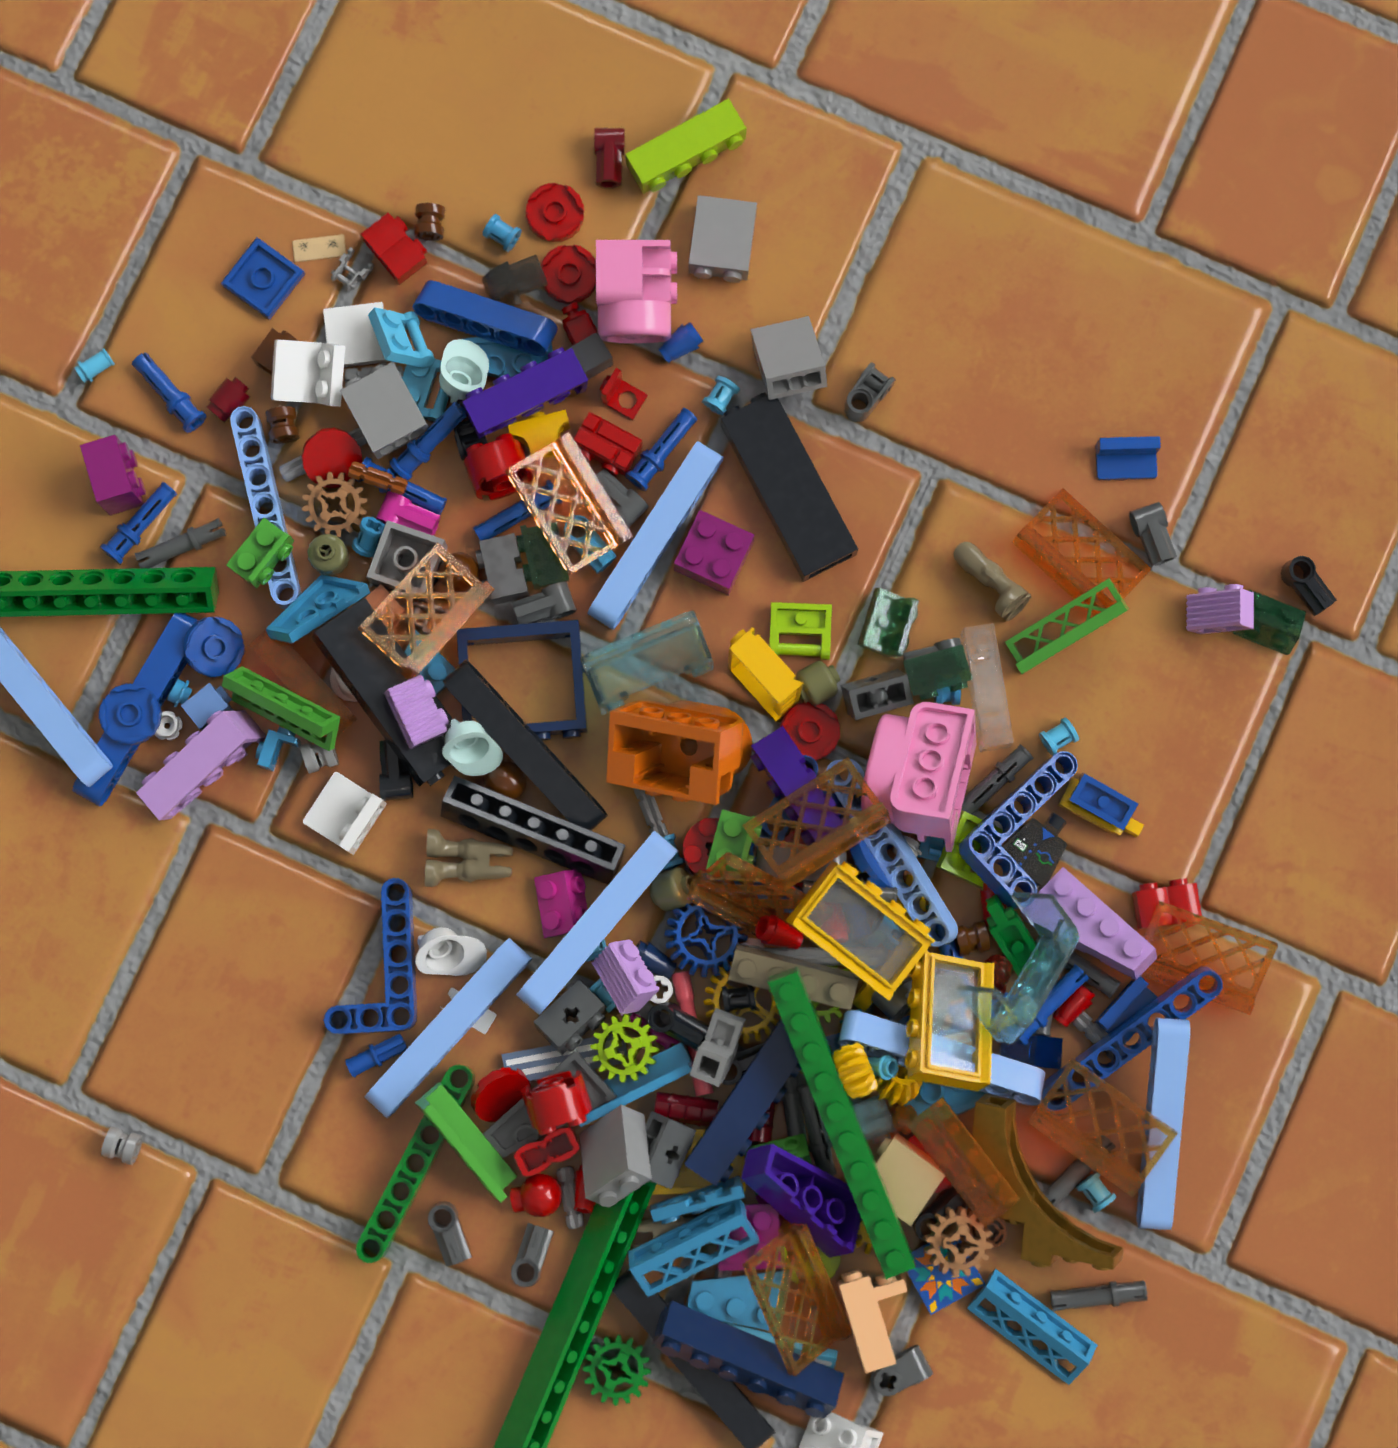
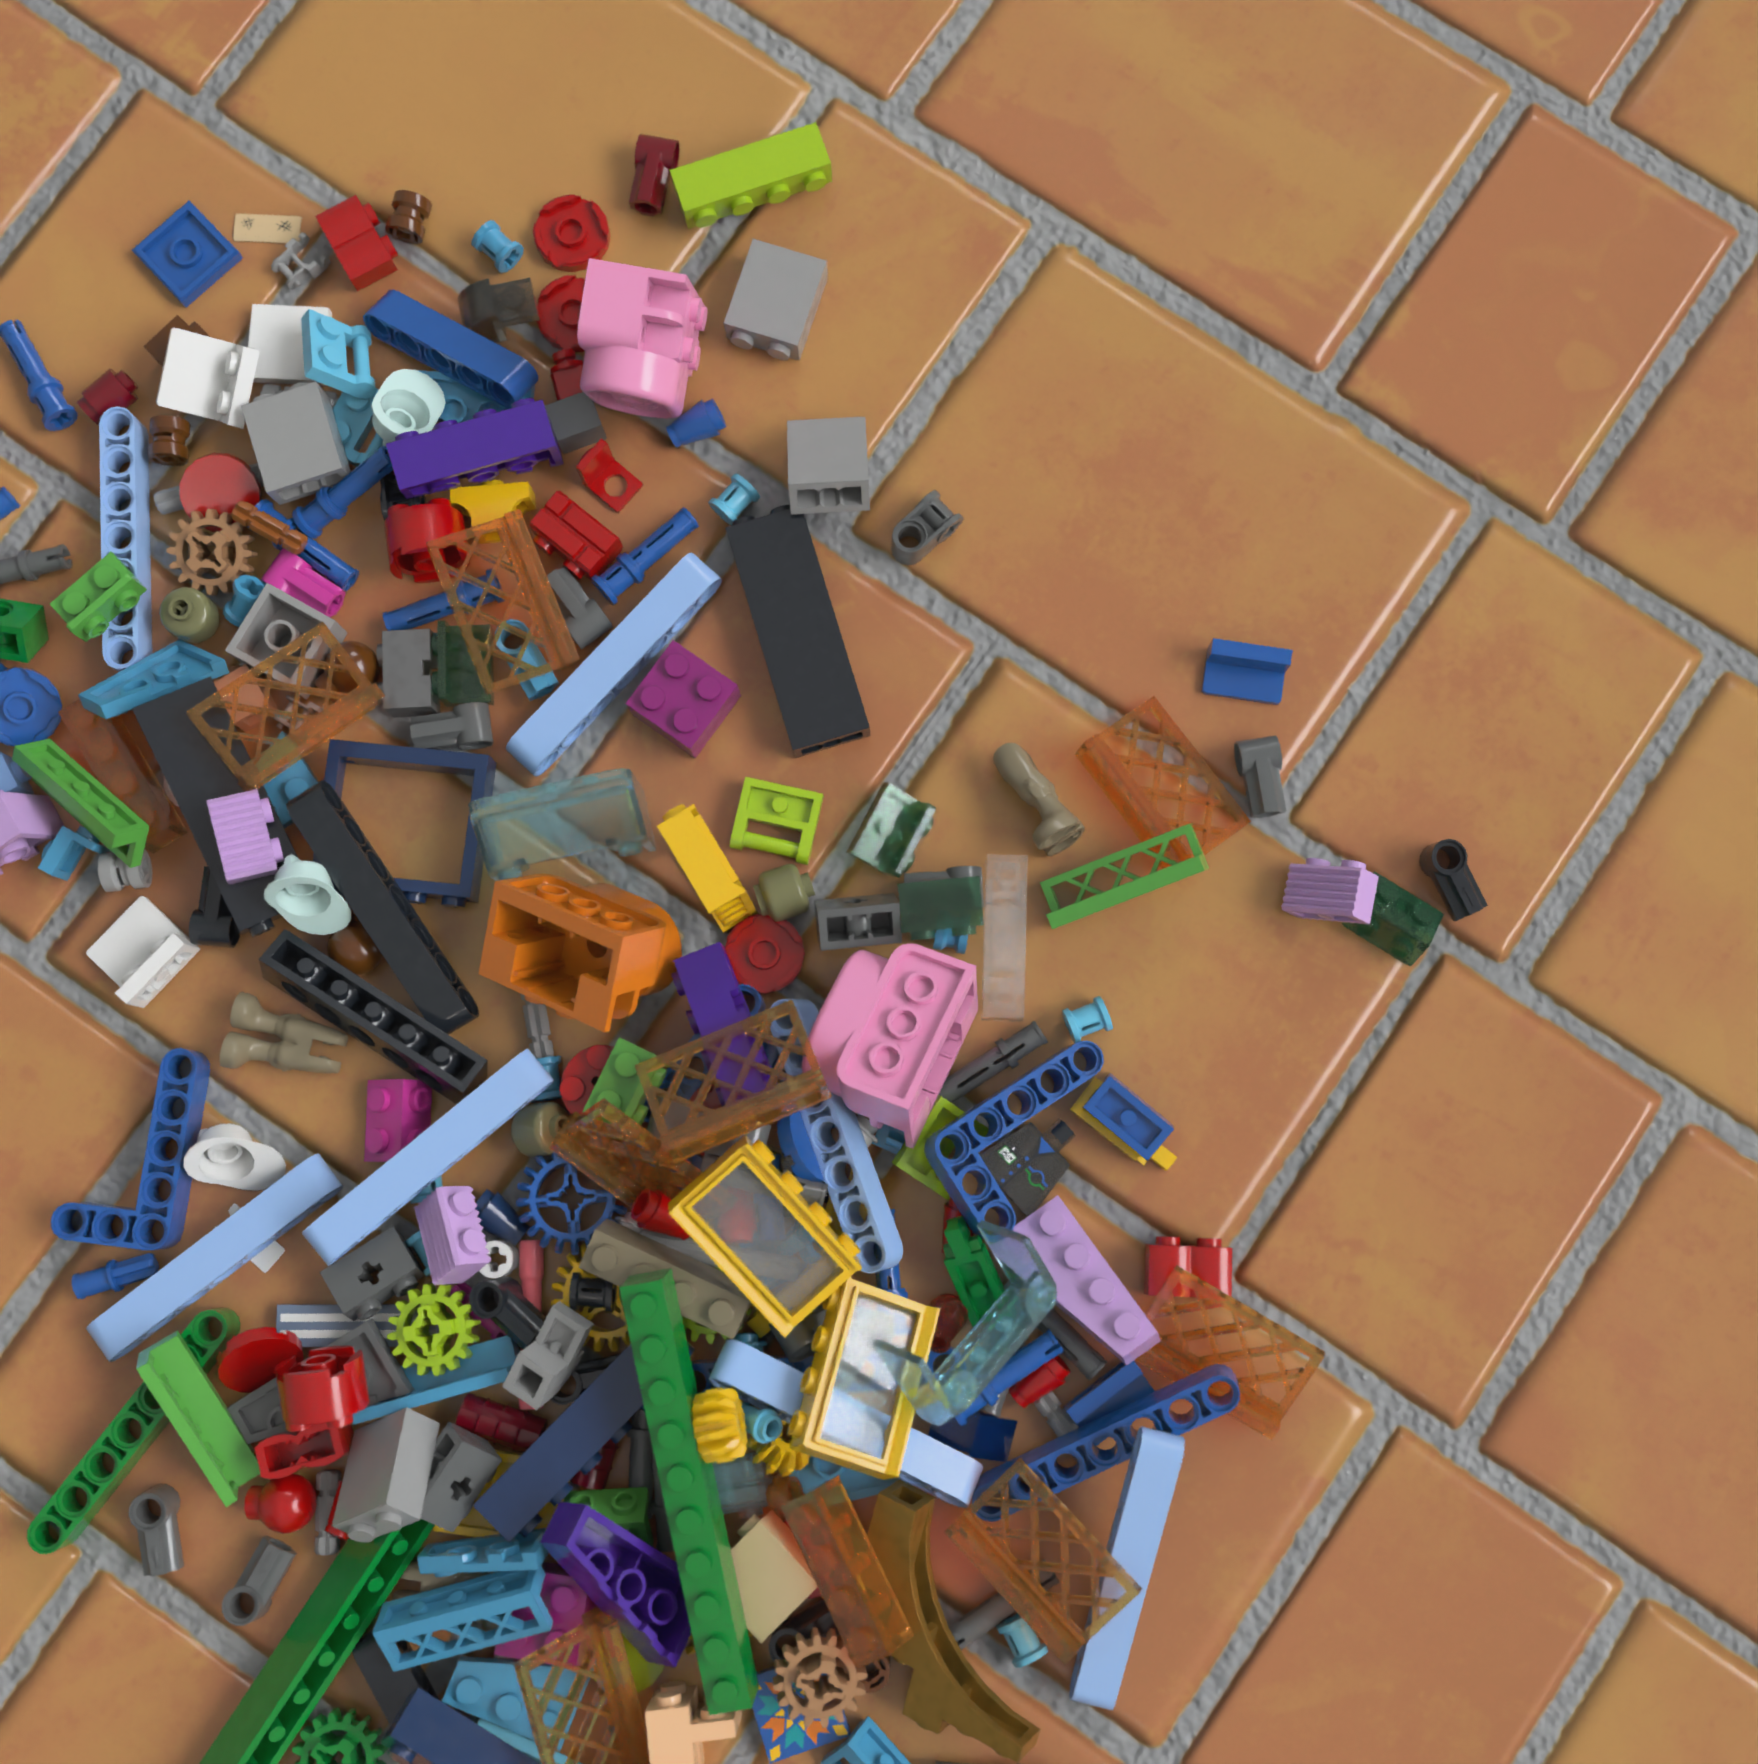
camera: 15 degrees right, 0 degrees up
(972, 938) = (921, 1266): reddish brown wheel -> none

